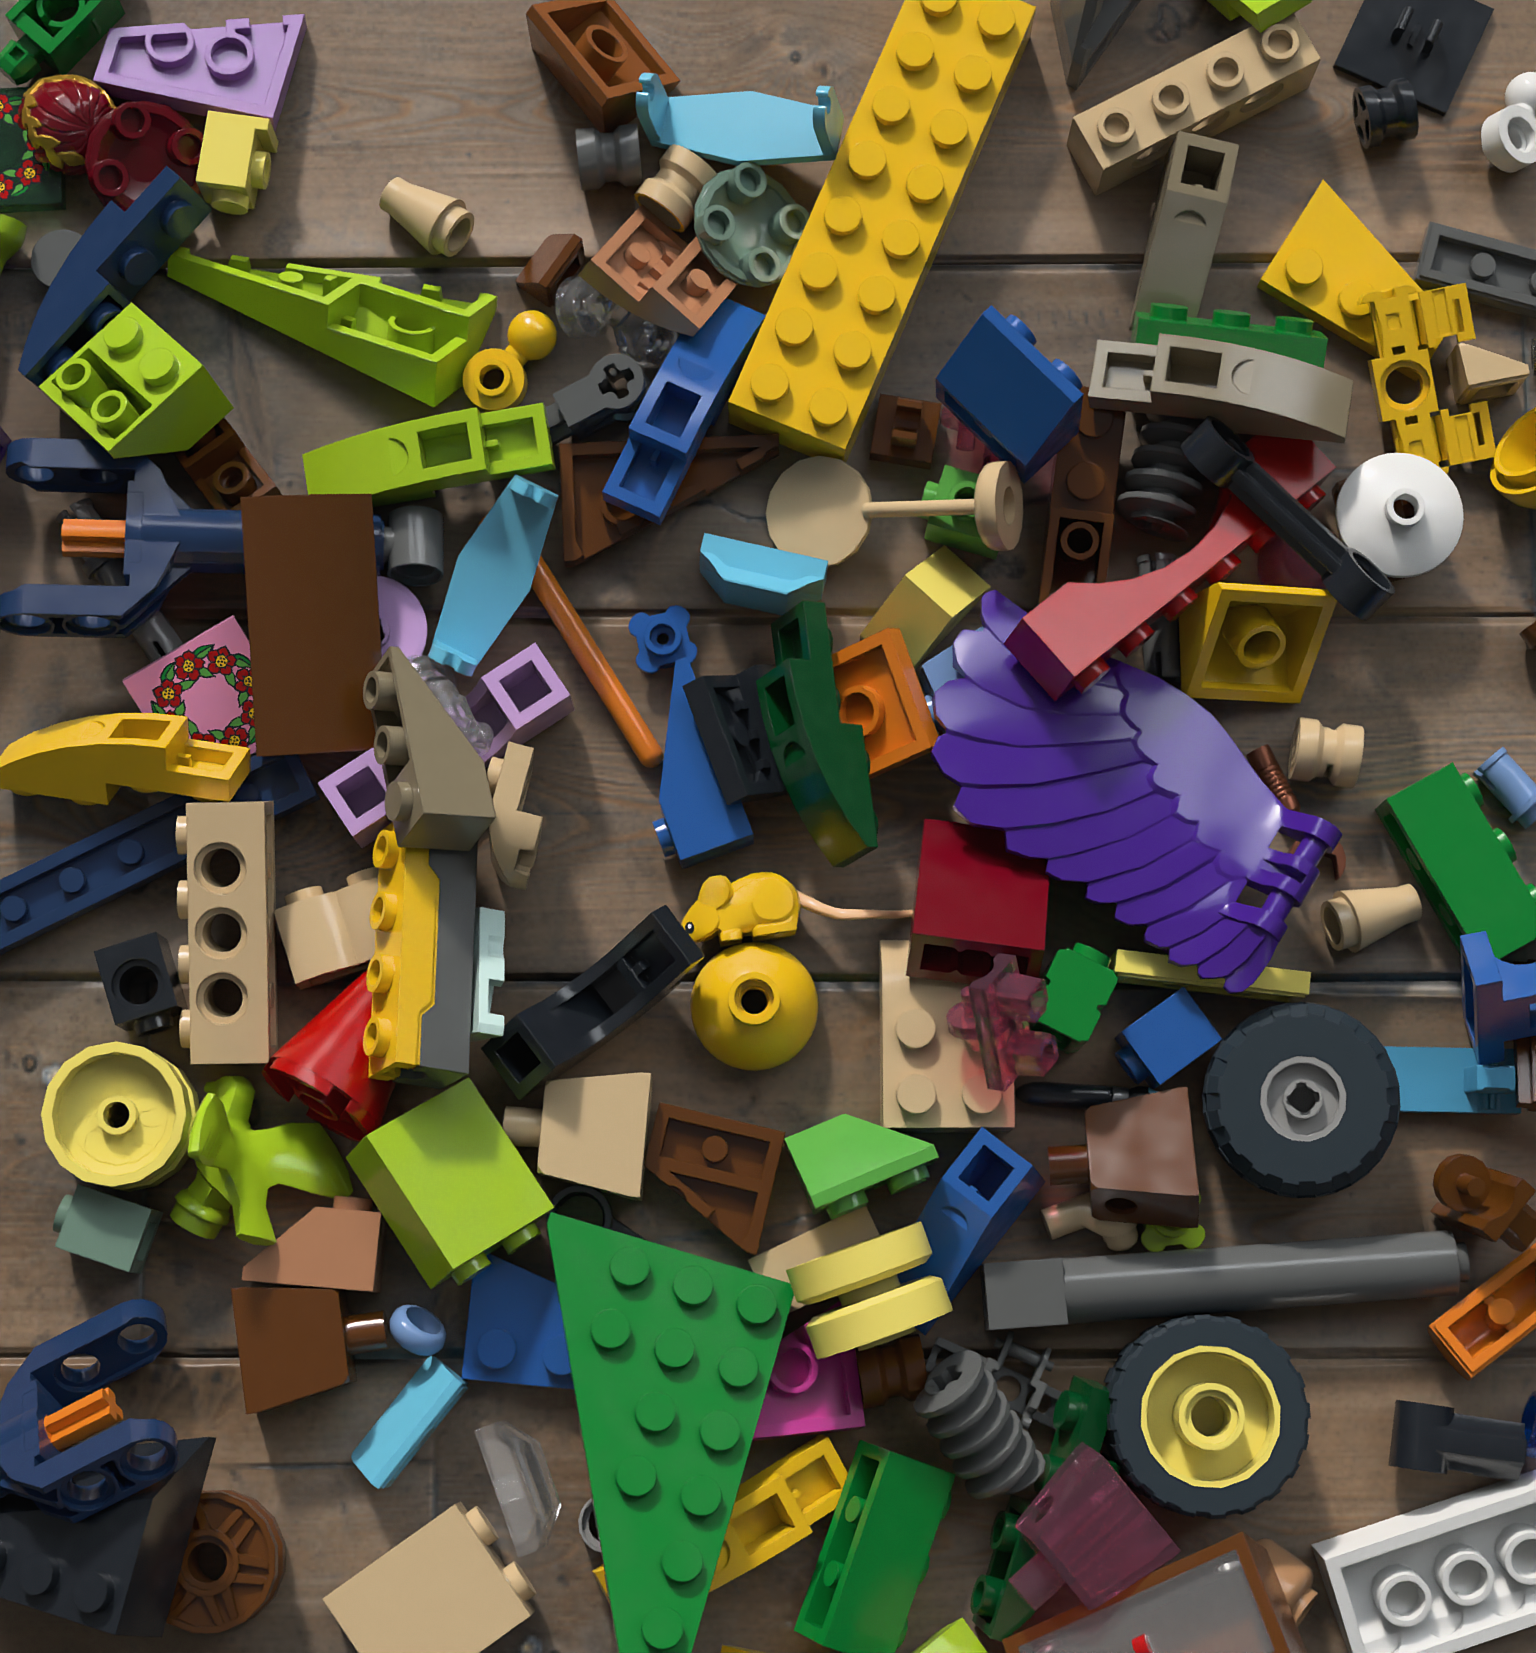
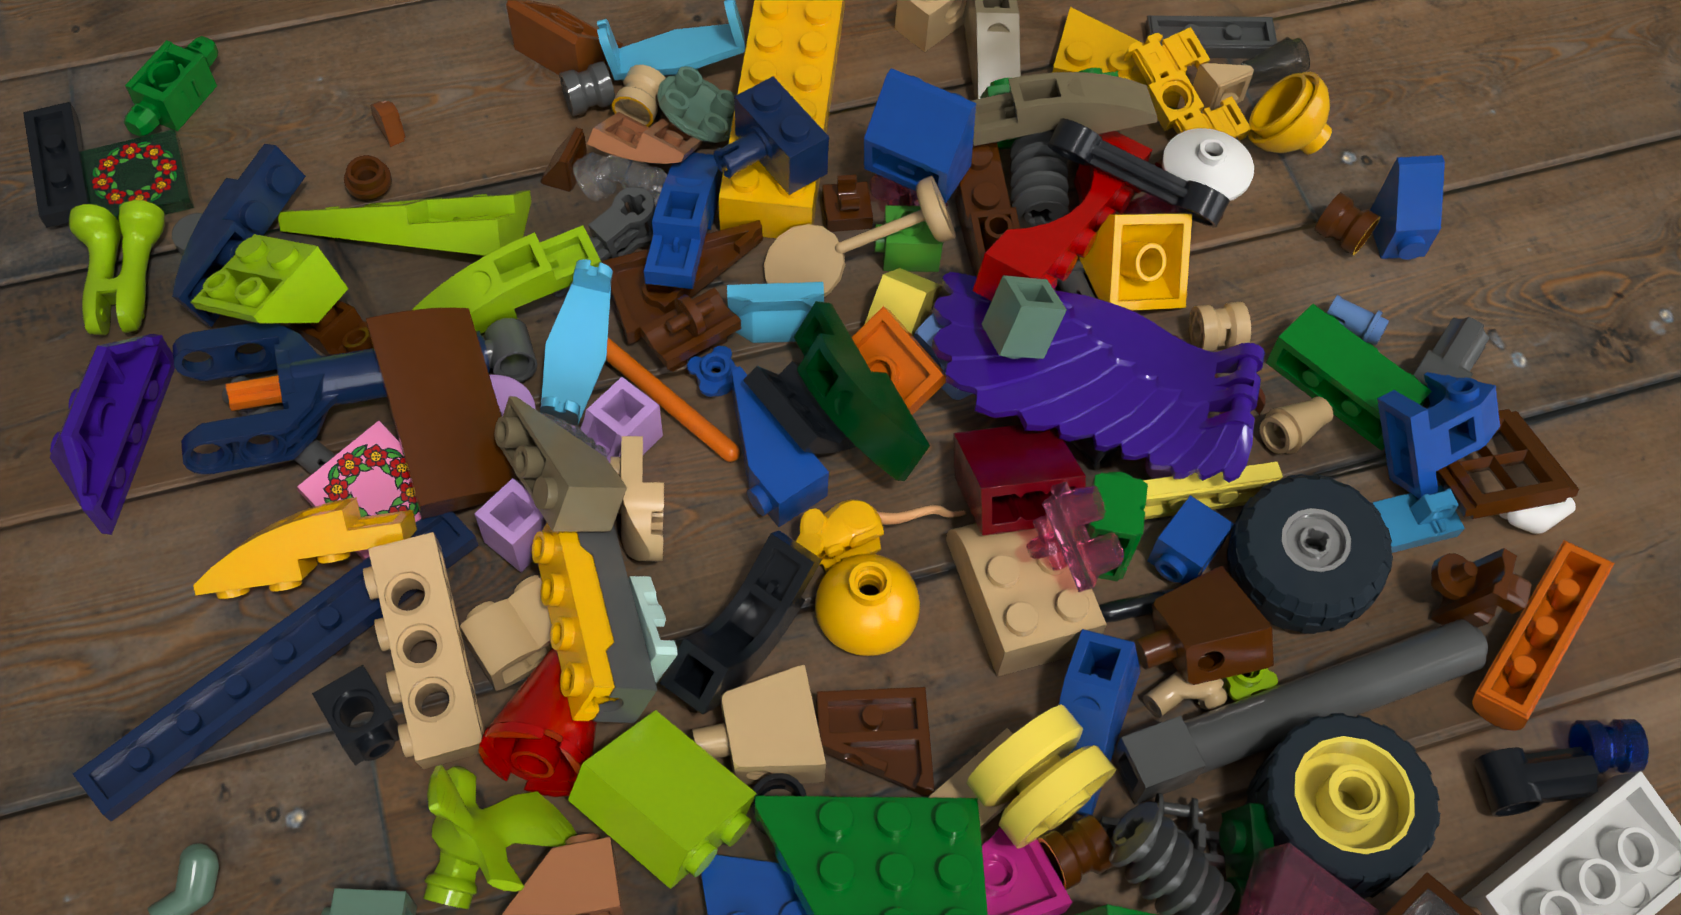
camera: 20 degrees left, 20 degrees down
(60, 117) = (187, 146): dark red hair -> none
(87, 1101) = (362, 822): light yellow wheel -> none
(135, 146) = (235, 143): dark red dish -> none
(204, 69) = (288, 101): wing -> none
(235, 160) = (316, 142): light yellow brick -> none
(292, 210) = (367, 177): none -> reddish brown plate
(336, 140) = (389, 121): none -> dark orange tile
(430, 217) = (469, 149): tan cone -> none
(529, 338) = (560, 205): yellow plate -> none
(645, 577) = (690, 328): none -> reddish brown hips
(818, 347) = (776, 134): none -> dark blue brick
(851, 1157) = (989, 689): bright green slope -> none
(1042, 718) = (1023, 317): none -> sand green brick

